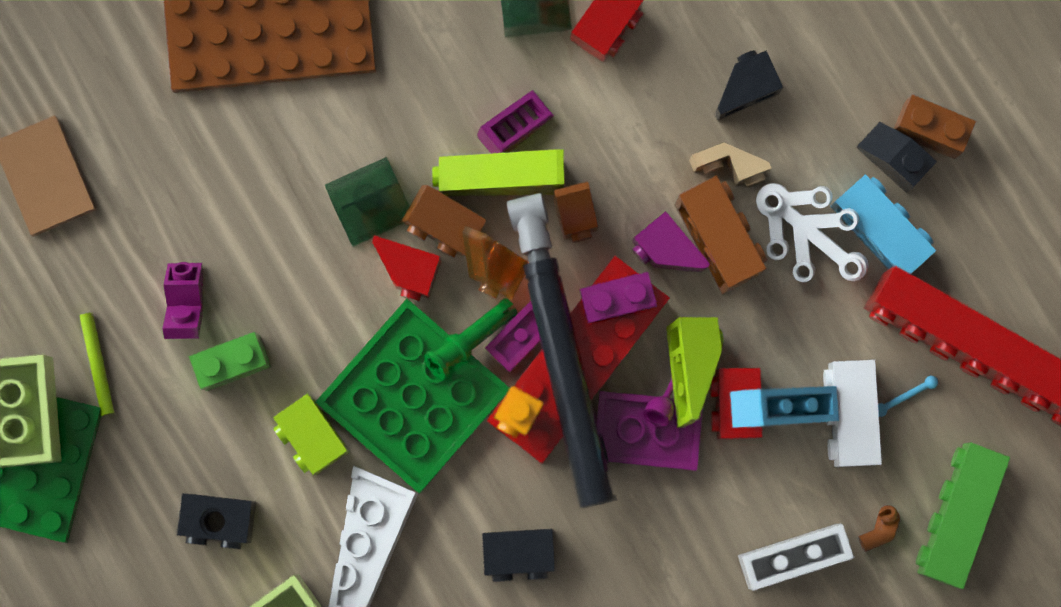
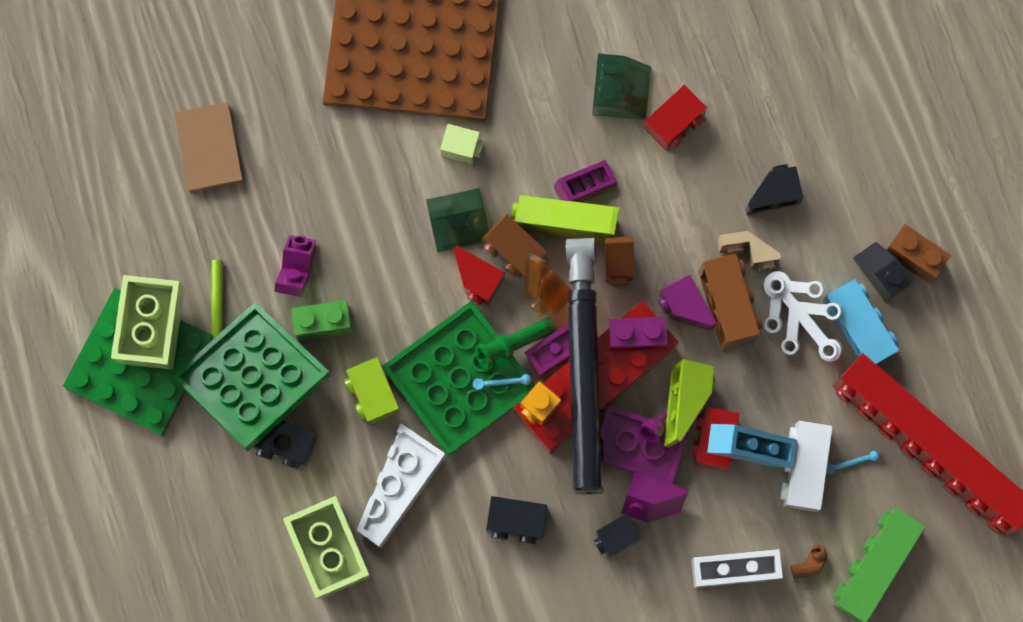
camera: 15 degrees right, 5 degrees down
(159, 450) = (251, 376): none -> green plate
(353, 108) = (461, 144): none -> yellowish green brick
(438, 399) = (479, 384): none -> medium azure hinge
(643, 549) = (616, 536): none -> black slope
(676, 493) = (652, 498): none -> magenta slope

